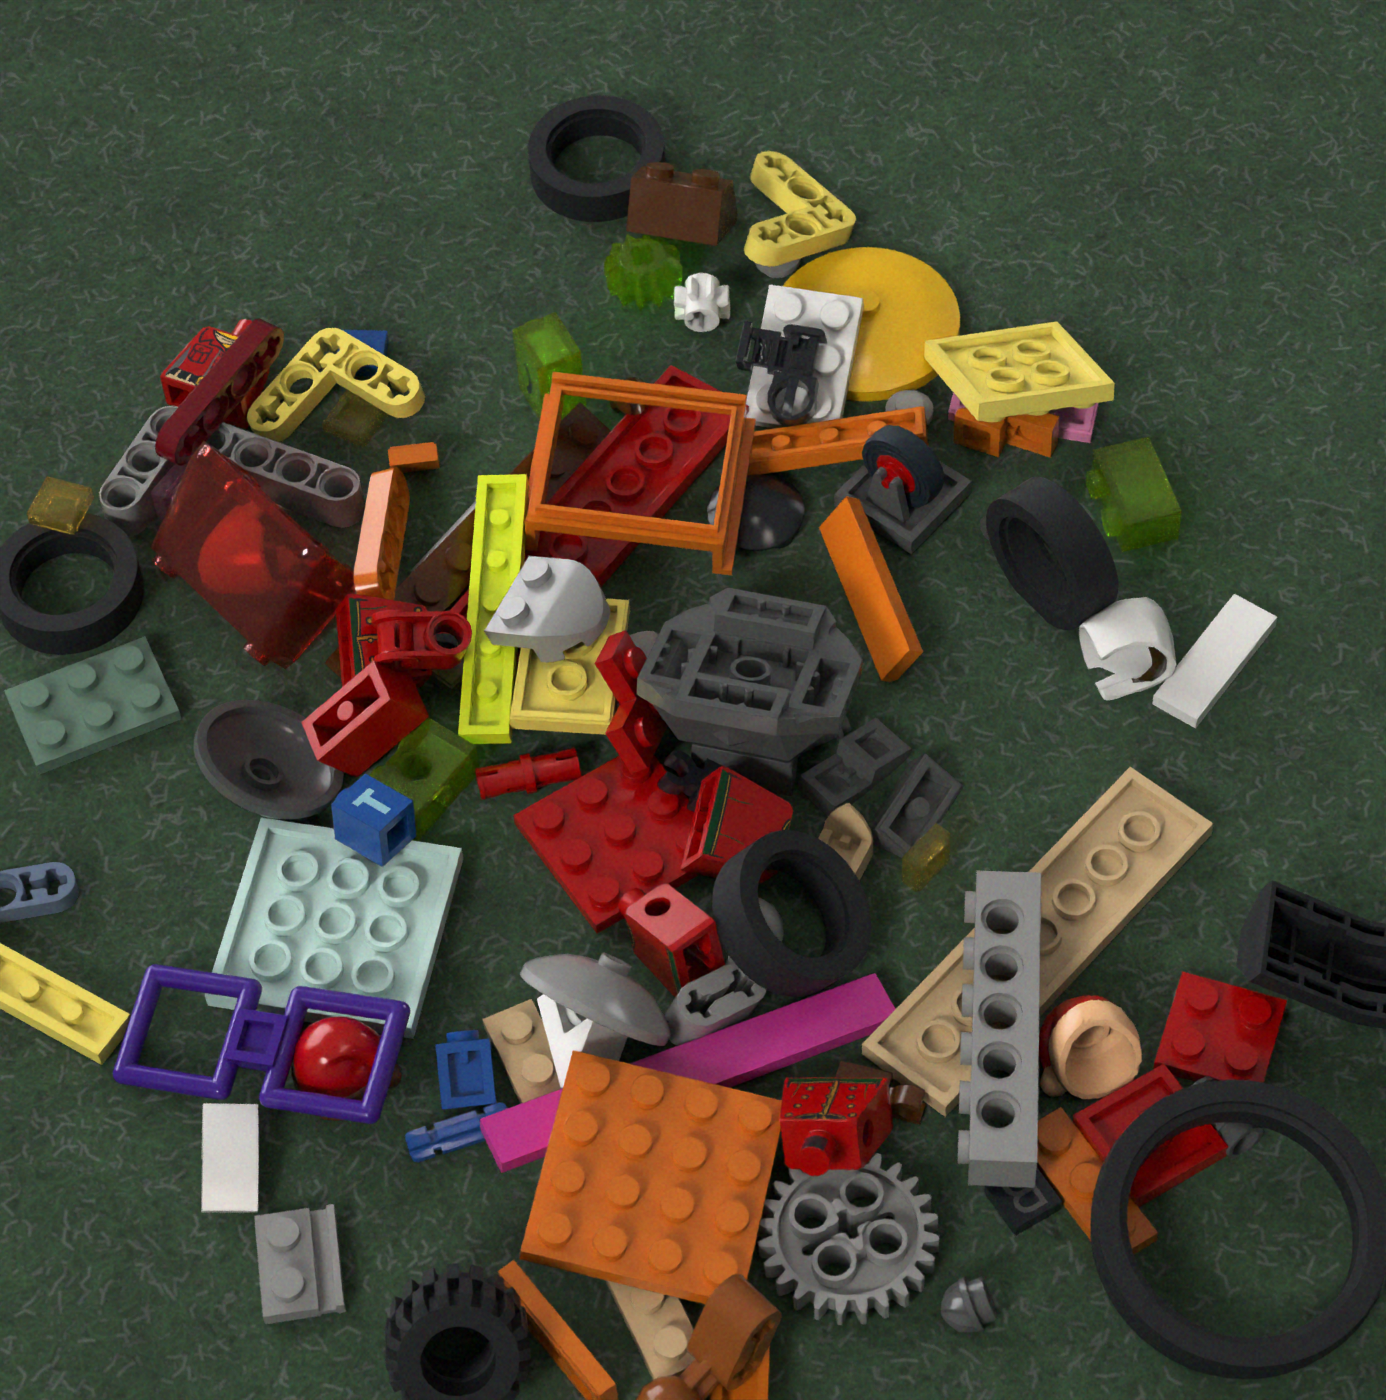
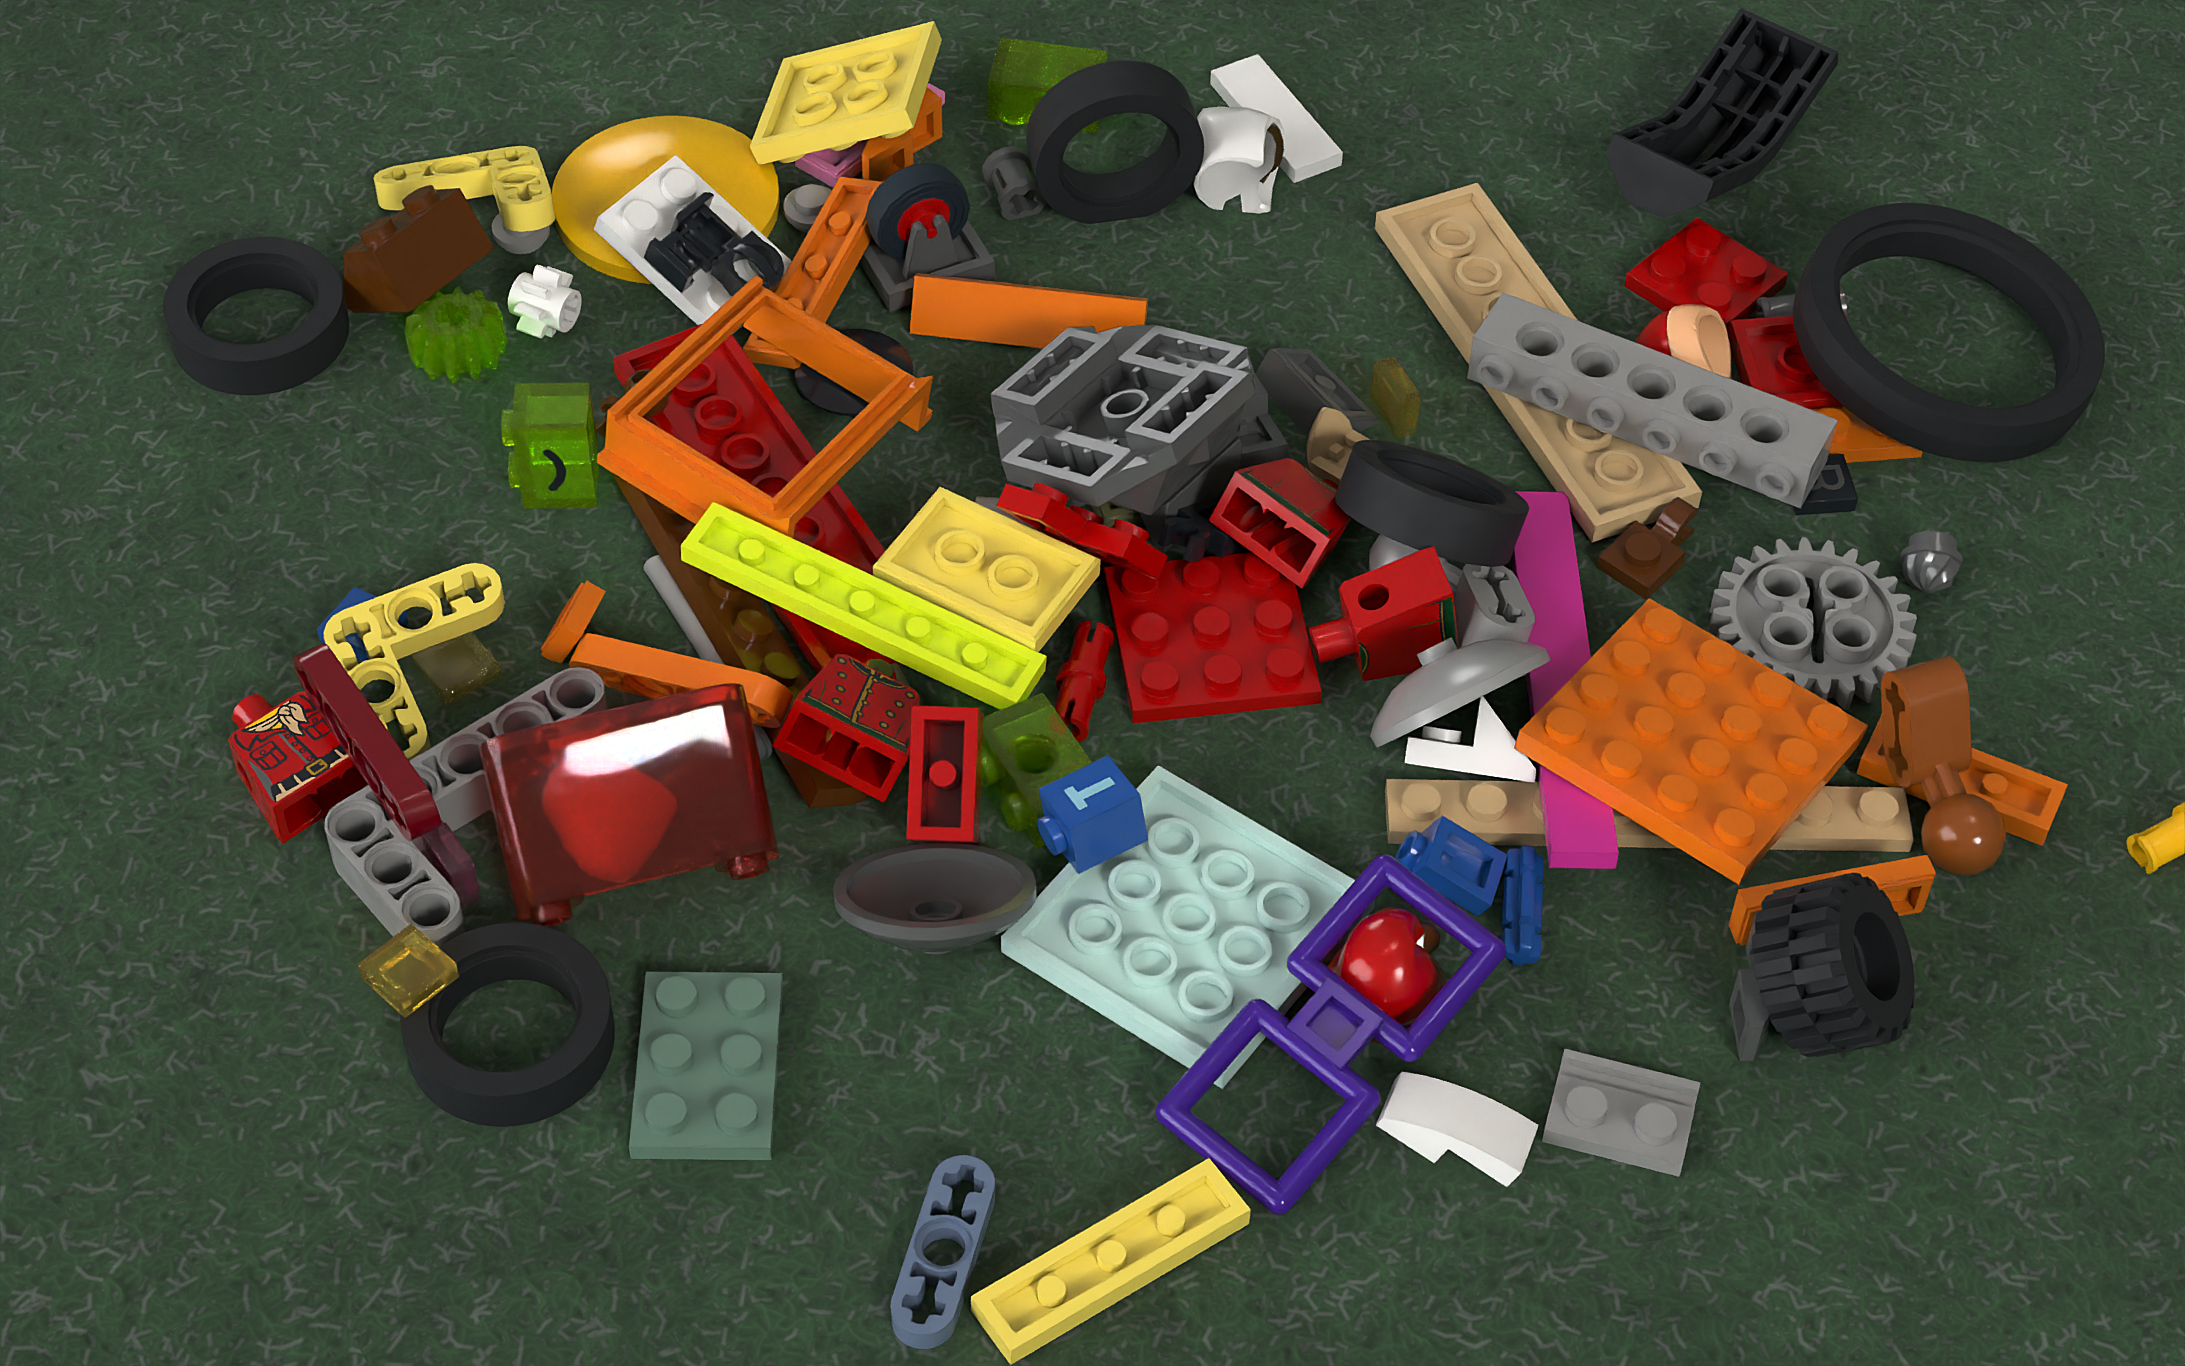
camera: 70 degrees left, 5 degrees down
(416, 641) = (900, 659): red piece -> none
(550, 609) = (923, 540): light grey slope -> none
(833, 1122) = (1697, 568): red torso -> none

